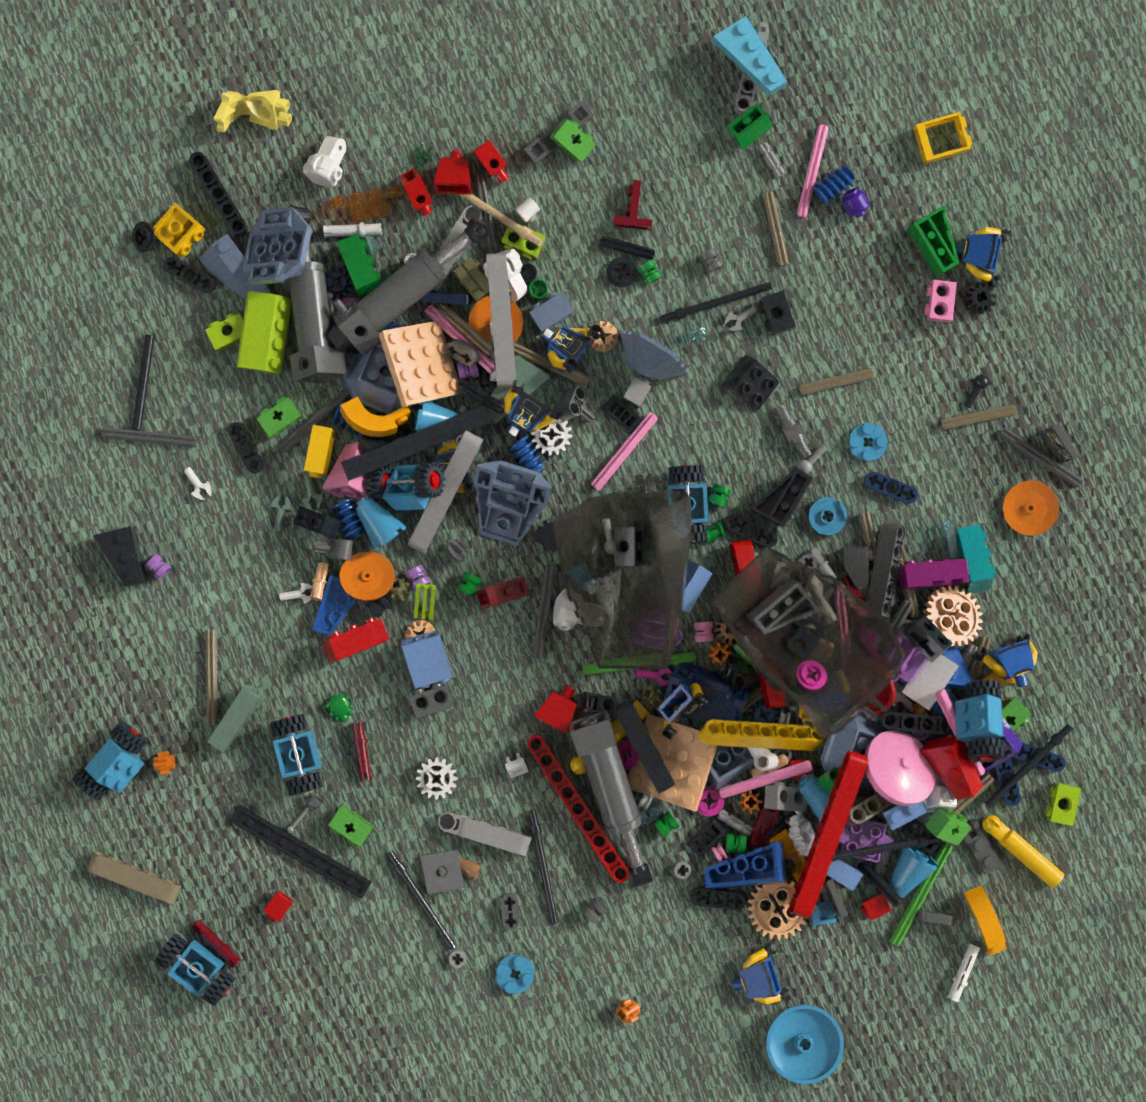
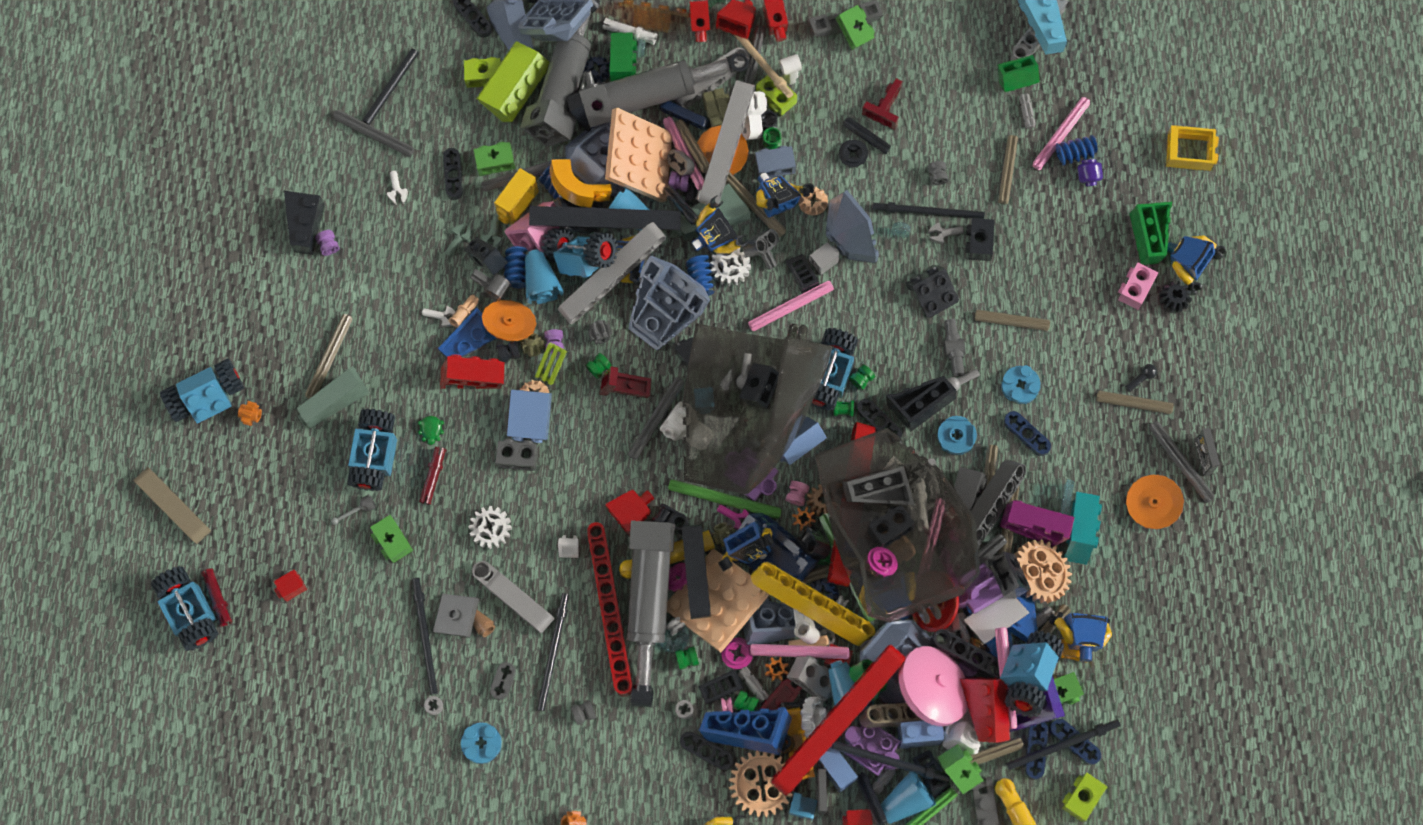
camera: 25 degrees right, 15 degrees down
(300, 851) = (335, 545): black tile -> none
(649, 272) = (878, 162): green wheel -> none

